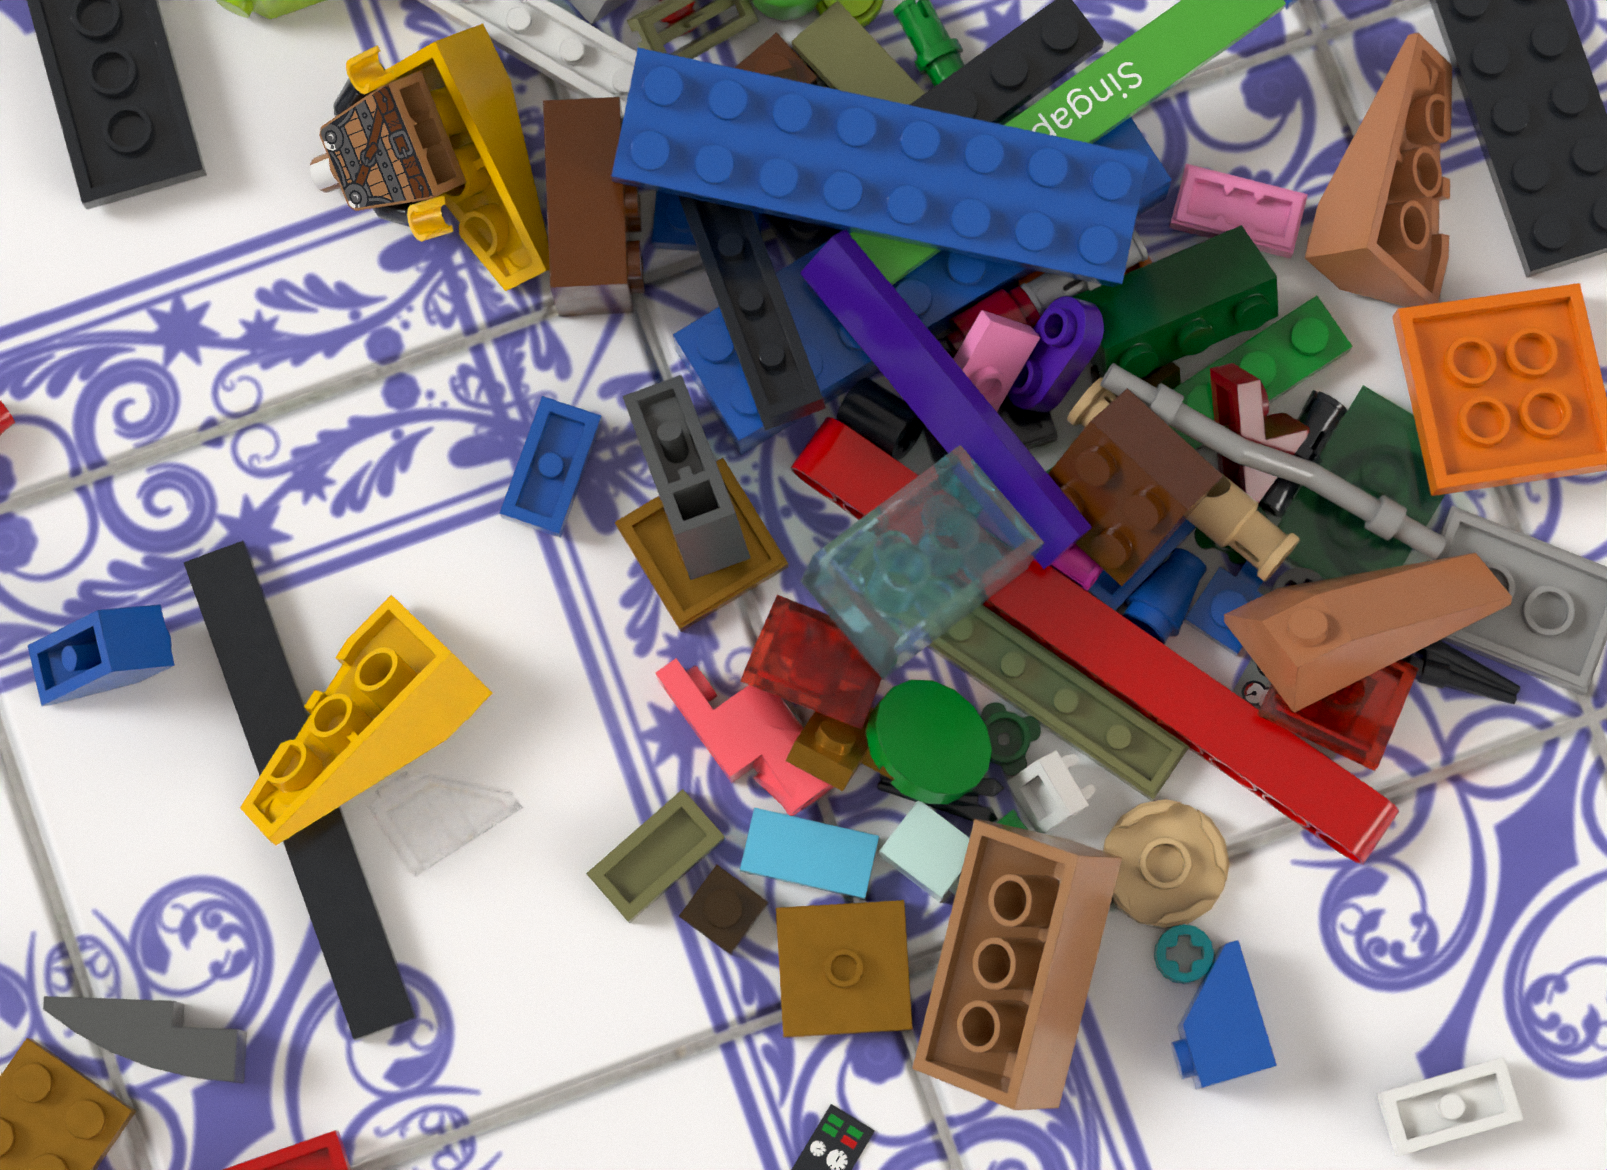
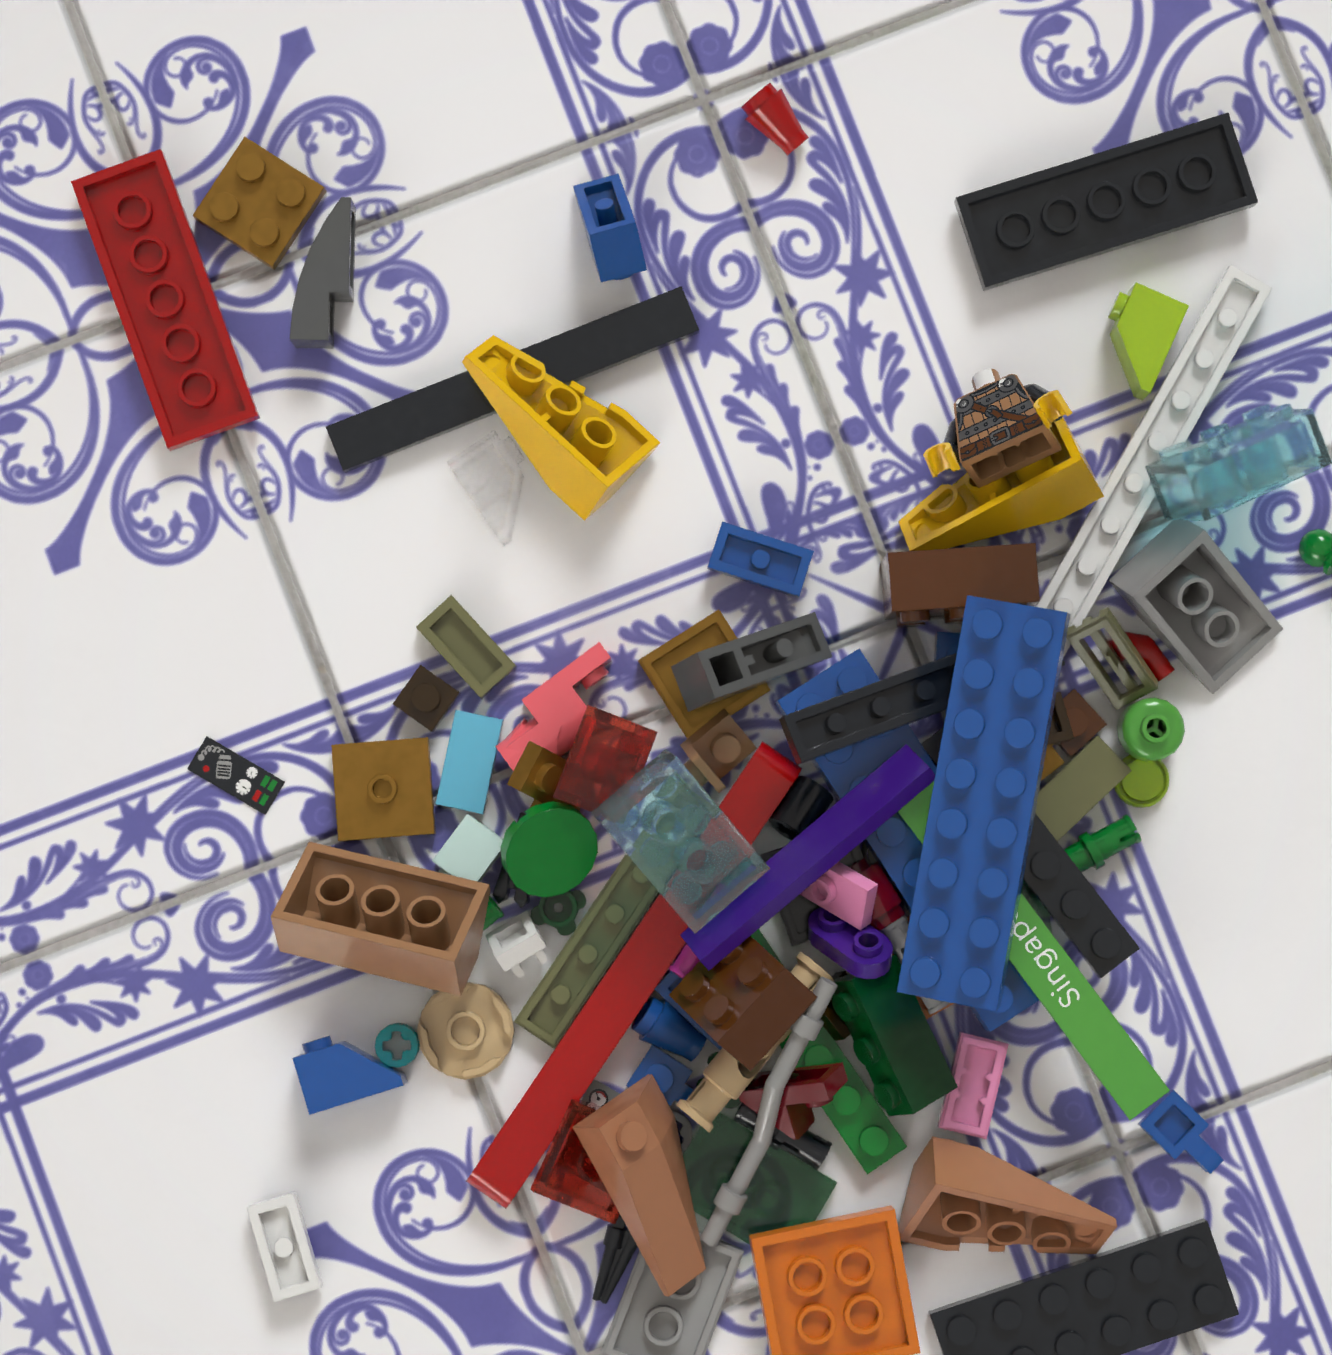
camera: 85 degrees right, 5 degrees up
(796, 524) = (716, 750): none -> medium nougat bracket

